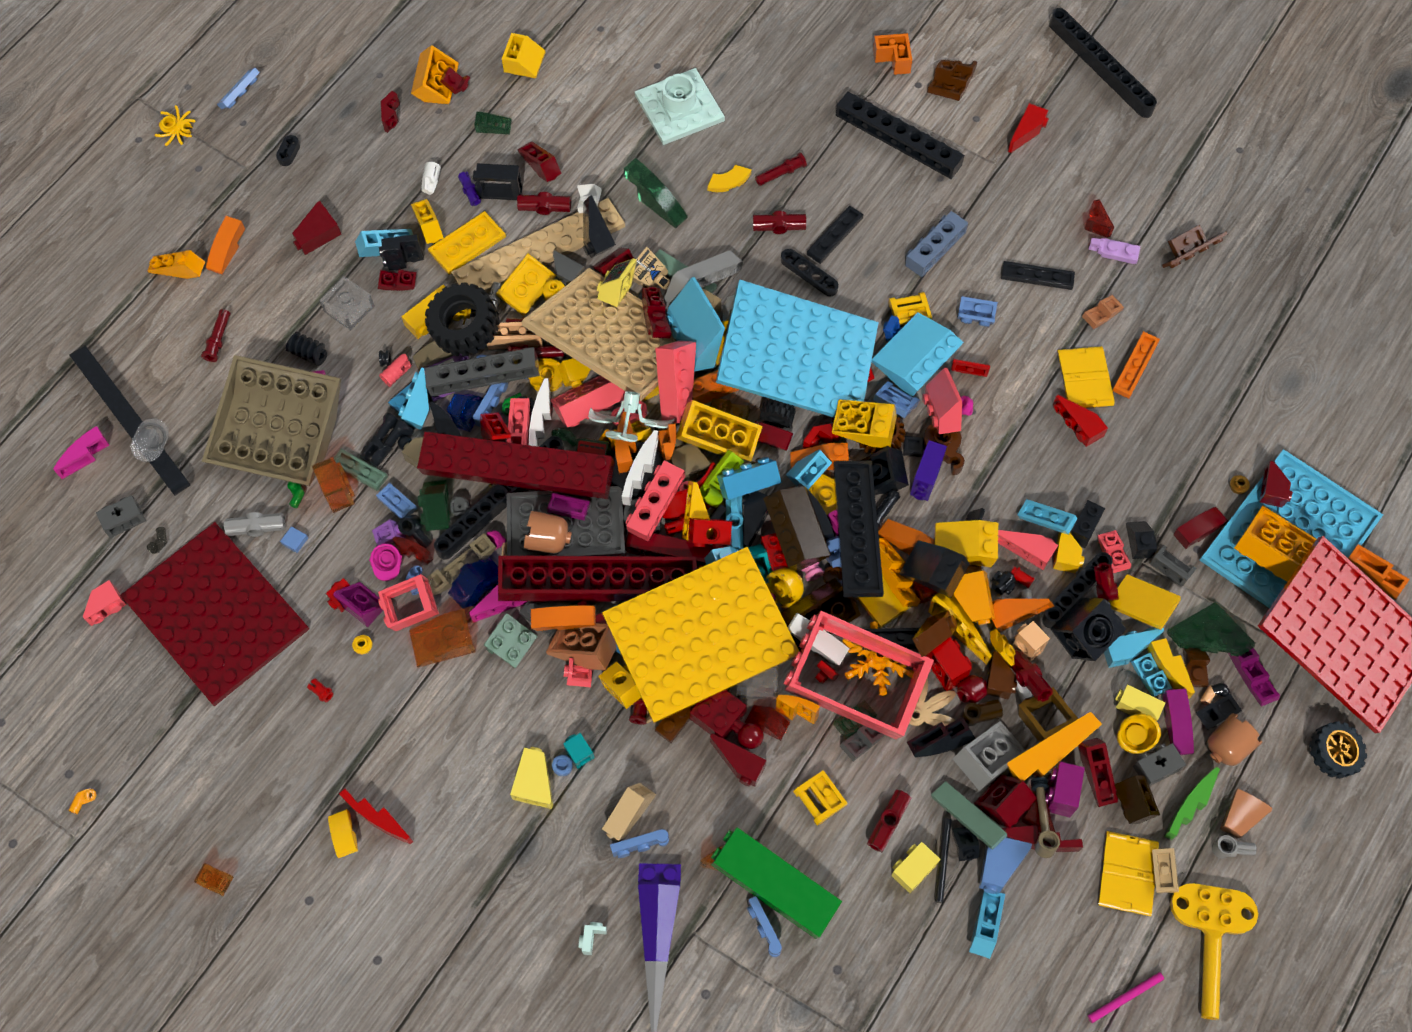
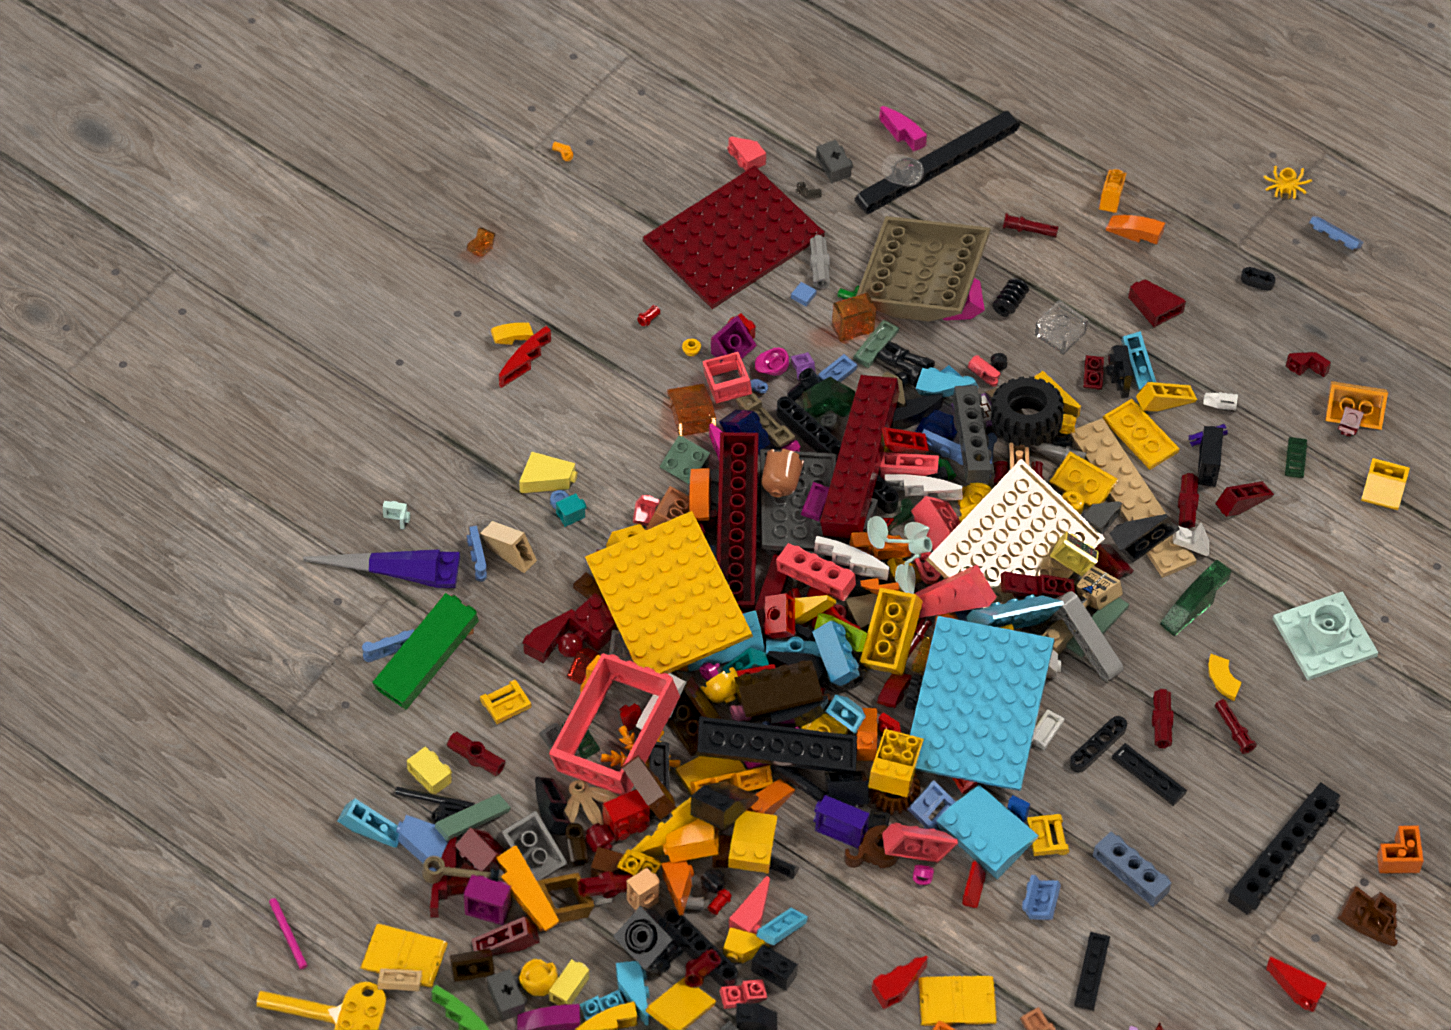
camera: 90 degrees right, 10 degrees down
(411, 548) = (787, 379): clear red slope -> none

